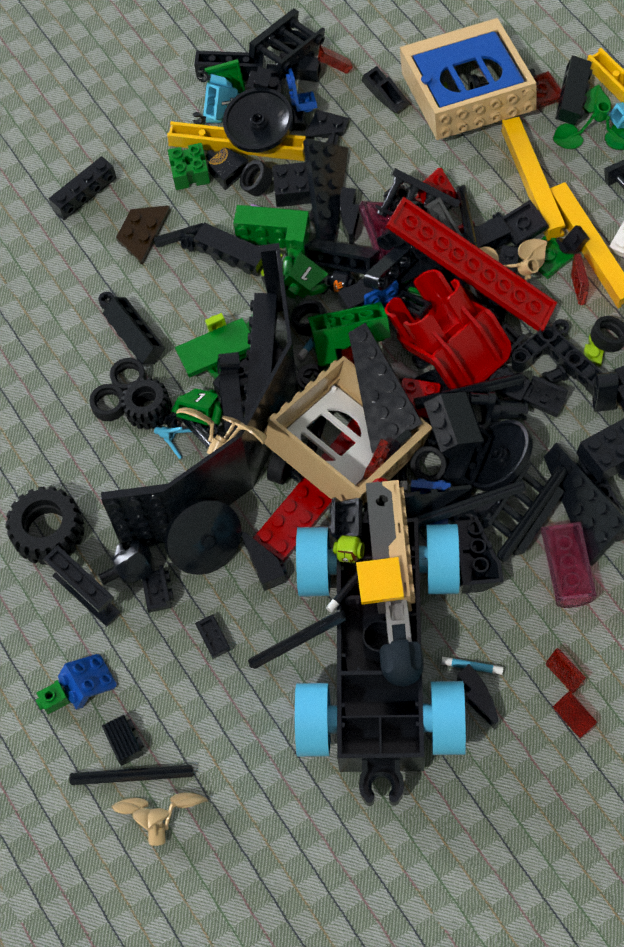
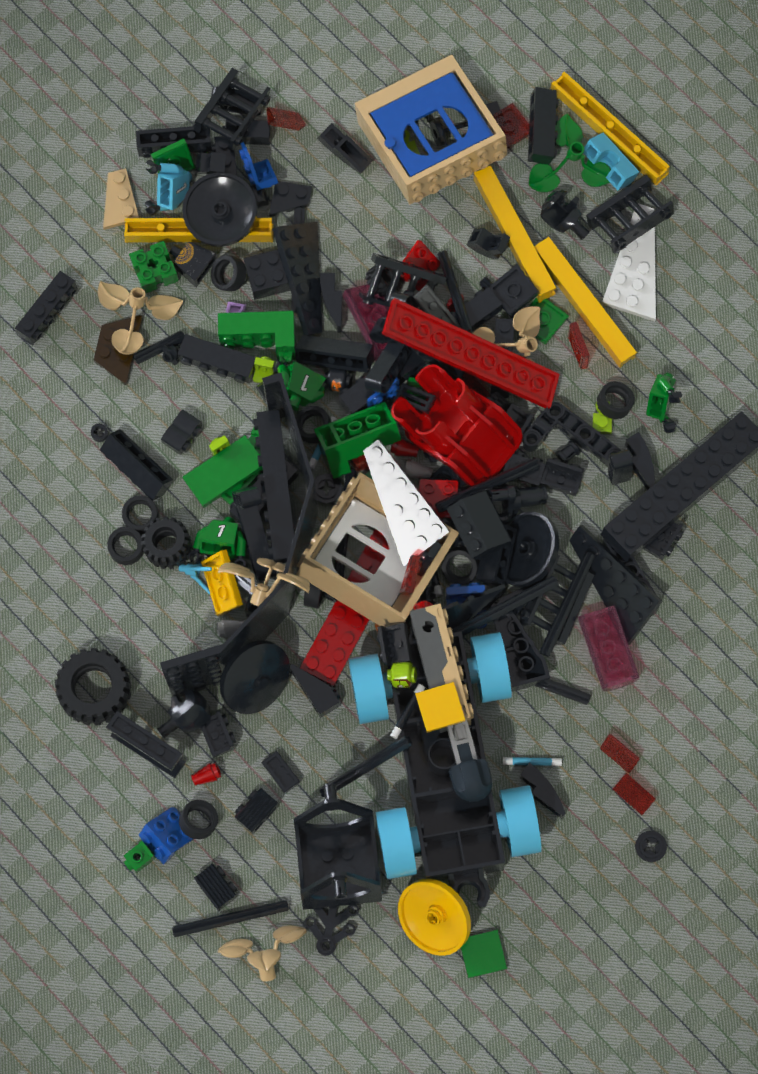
camera: 15 degrees left, 10 degrees up
(124, 656) = (192, 831): none -> black tyre
(138, 627) = (206, 774): none -> red cone
(147, 186) = (113, 296): none -> tan plant
(170, 109) = (119, 200): none -> tan wing
(180, 670) = (256, 810): none -> black brick
(183, 309) = (181, 432): none -> black brick
(190, 443) = (221, 585): none -> yellow tile
(234, 794) = (330, 923): none -> black plant
(251, 732) = (338, 859): none -> black piece
(341, 805) = (434, 917): none -> yellow dish
(387, 856) = (483, 954): none -> green tile
(393, 350) = (404, 448): none -> red cone
(506, 184) = (487, 243): none -> black brick
(516, 600) = (565, 691): none -> black axle
(561, 323) = (569, 404): black bush -> none
(573, 241) = (566, 303): black bracket -> none
(580, 167) = (563, 215): none -> black piece
(588, 763) = (652, 837): none -> black gear

